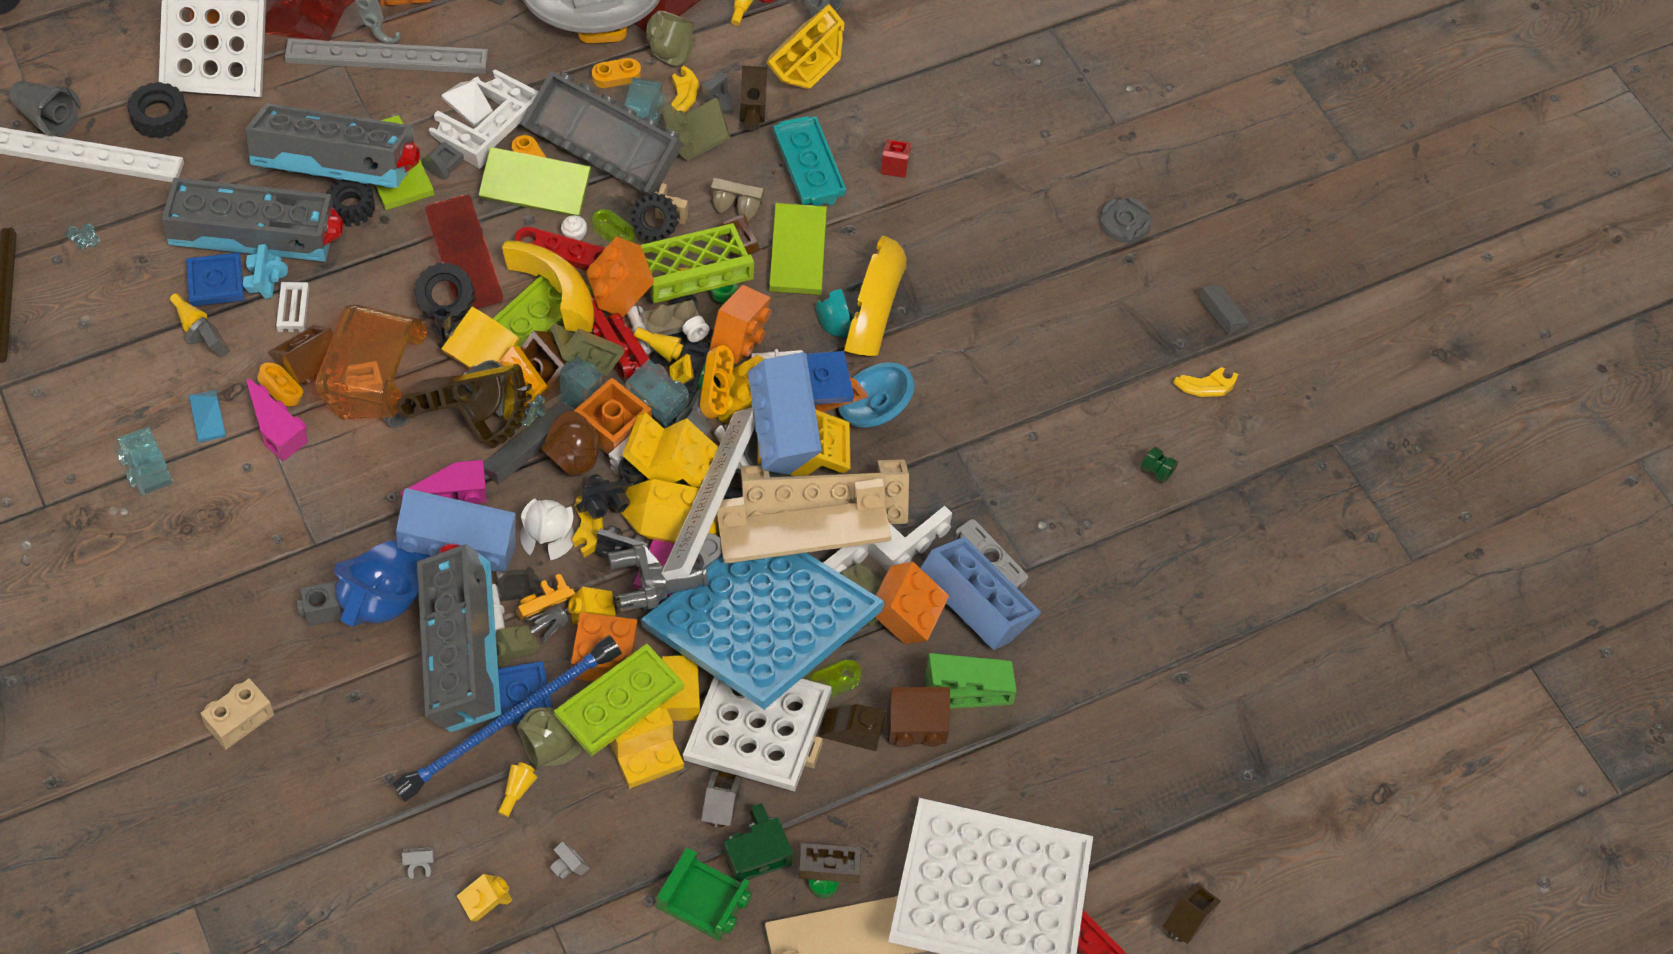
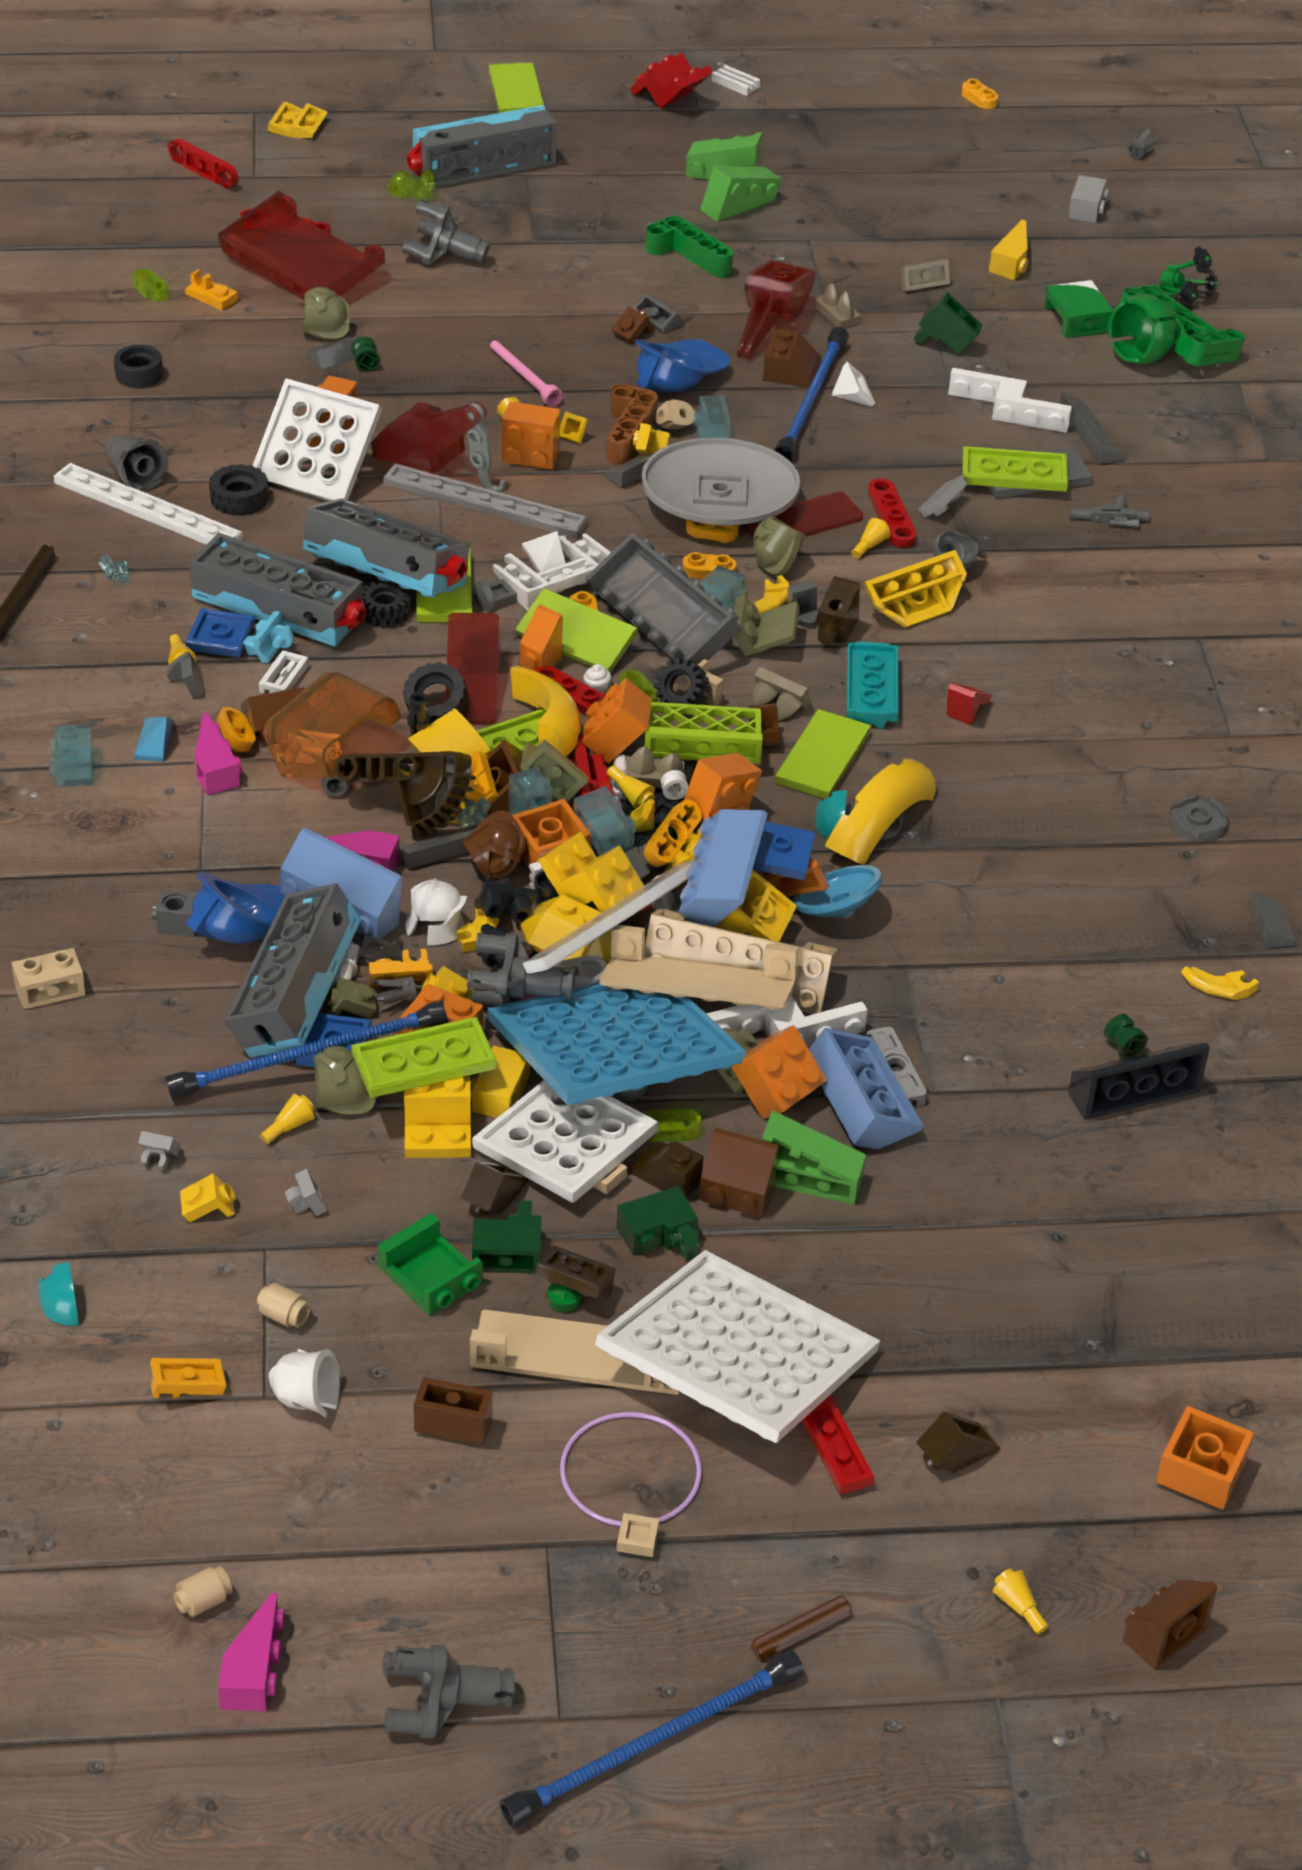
camera: 25 degrees right, 15 degrees down
(512, 205) = (542, 639): none -> orange slope
(871, 783) = (659, 1221): none -> dark green hinge
(1187, 505) = (1139, 1080): none -> black slope
(1382, 858) = (1205, 1457): none -> orange brick

